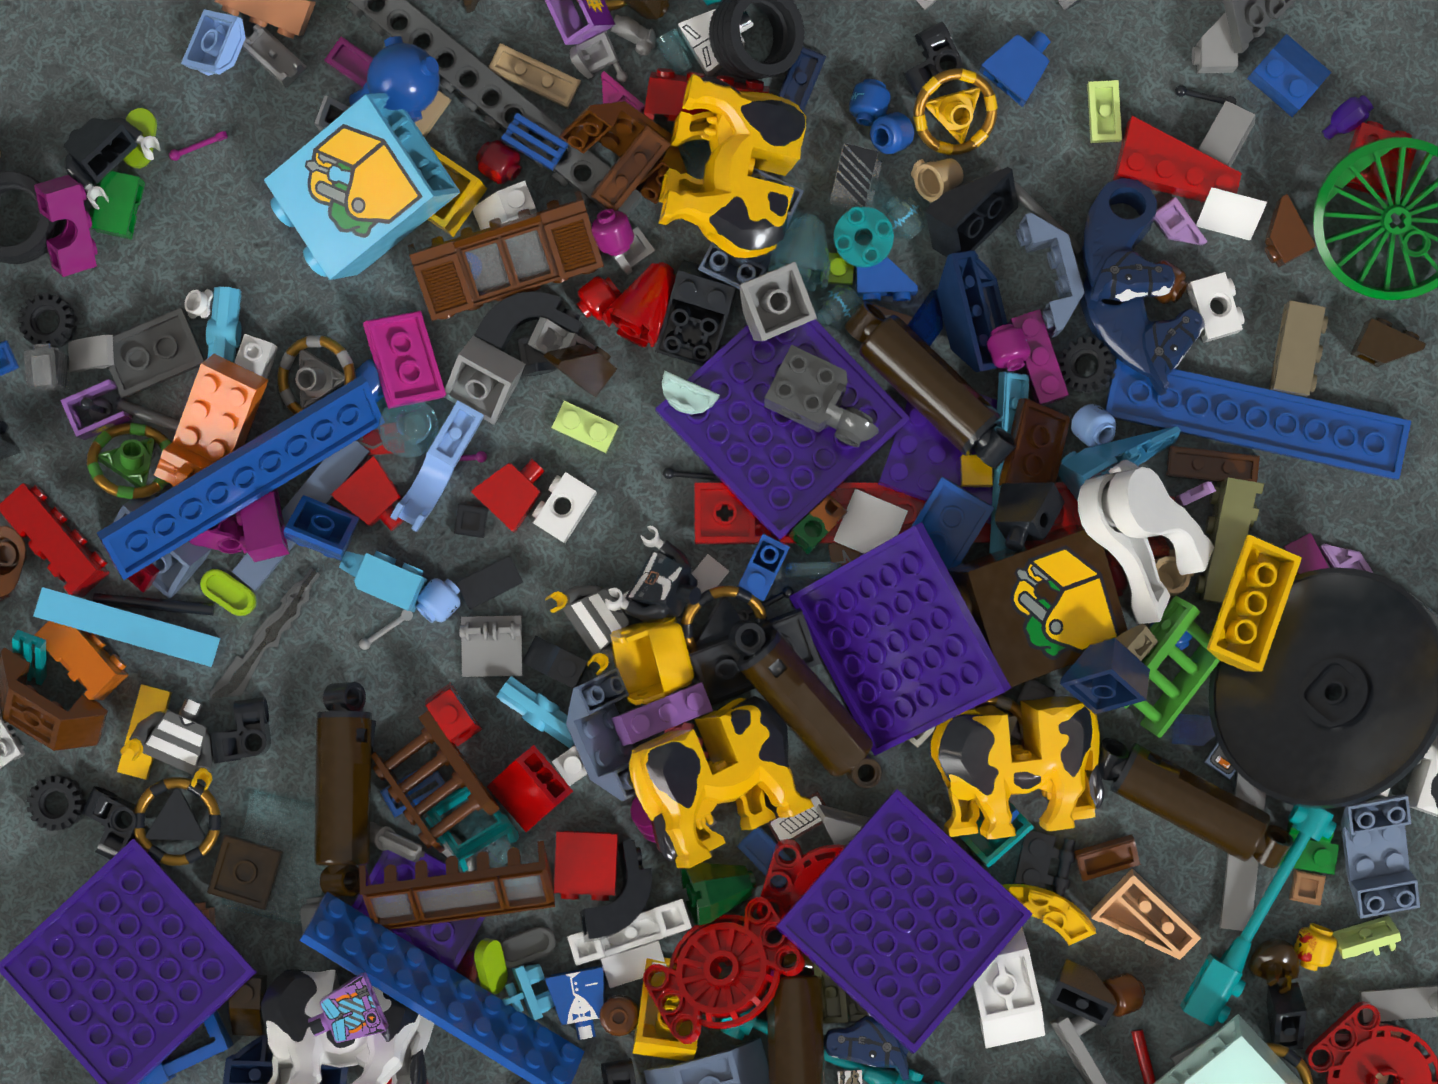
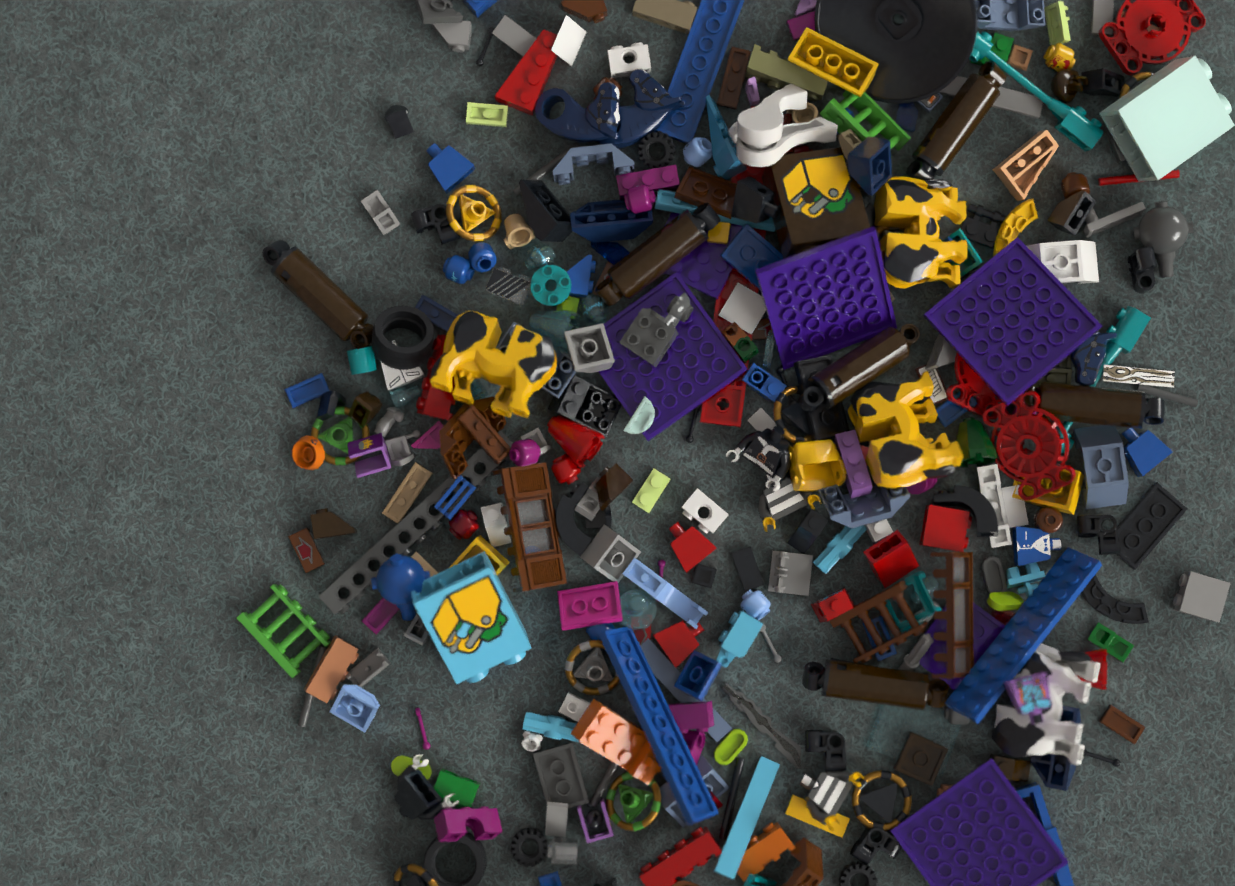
camera: 85 degrees left, 0 degrees up
(1107, 857) = (984, 184): reddish brown tile -> none
(1177, 224) = (569, 77): lavender tile -> none

